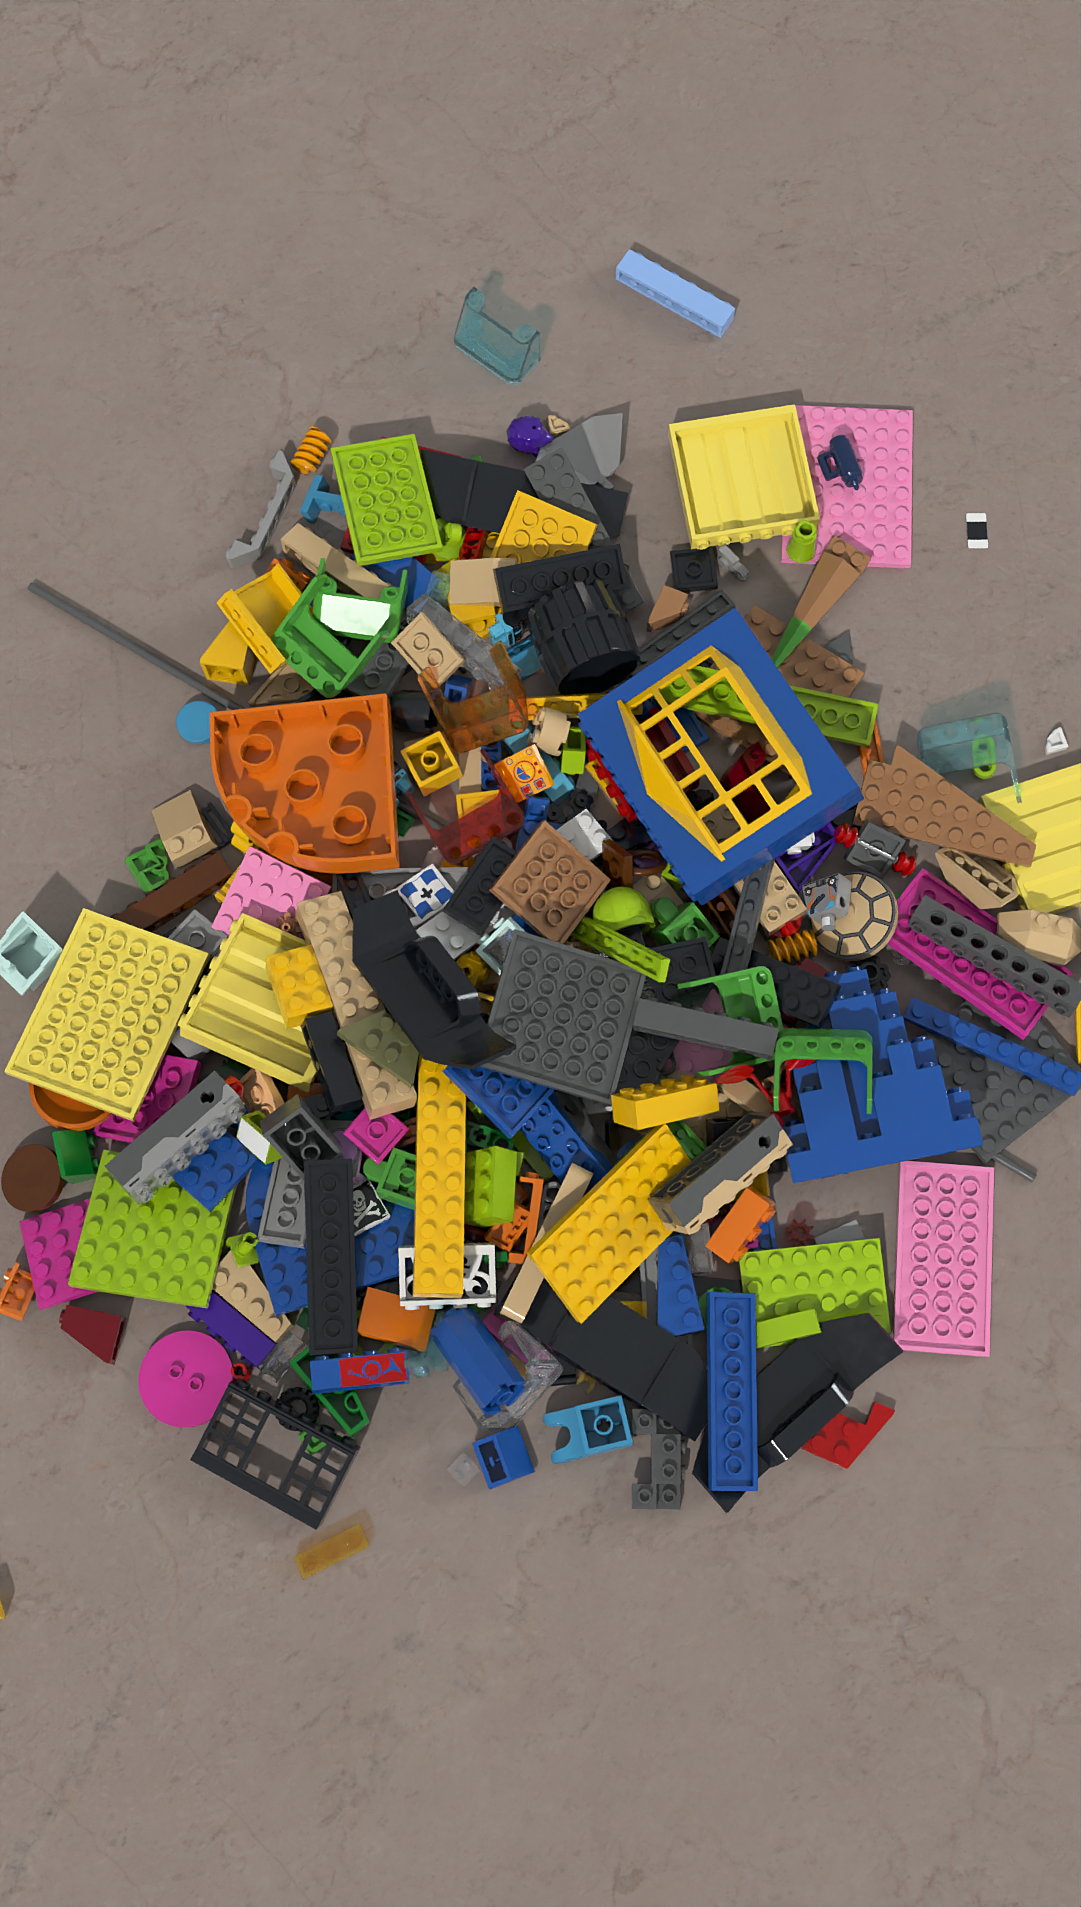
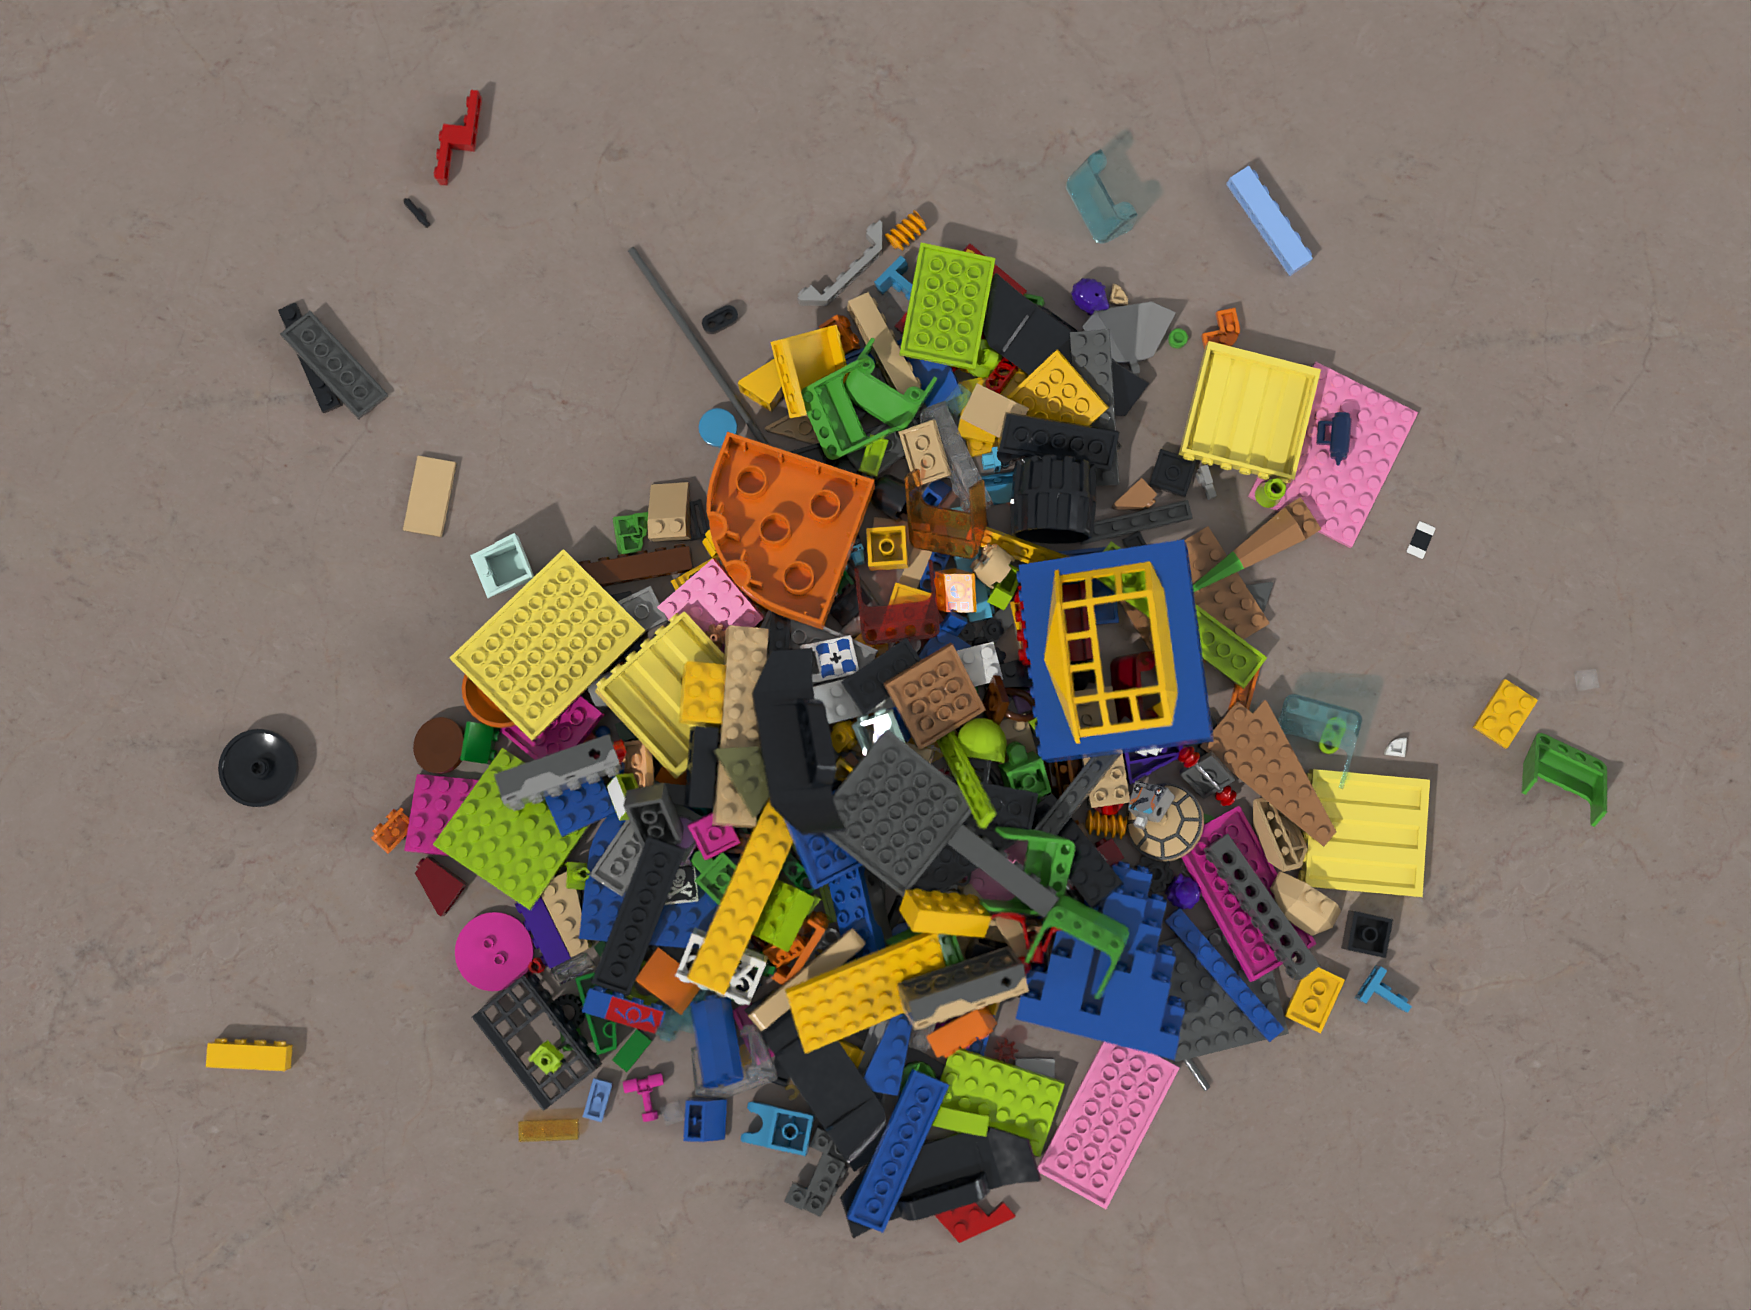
camera: 20 degrees right, 10 degrees up
(152, 615) = (718, 317): none -> black plate
(302, 1457) = (552, 1055): none -> lime brick
(372, 1491) = (597, 1099): none -> medium blue plate
(375, 676) = (873, 457): none -> lime tile
(387, 1419) = (632, 1050): none -> green tile
(414, 840) = (846, 605): none -> black bracket
(419, 1454) = (643, 1087): none -> dark pink bar
(636, 441) = (1177, 338): none -> bright green tile
(681, 407) = (1228, 328): none -> orange plate
(908, 979) = (1183, 892): none -> dark purple animal

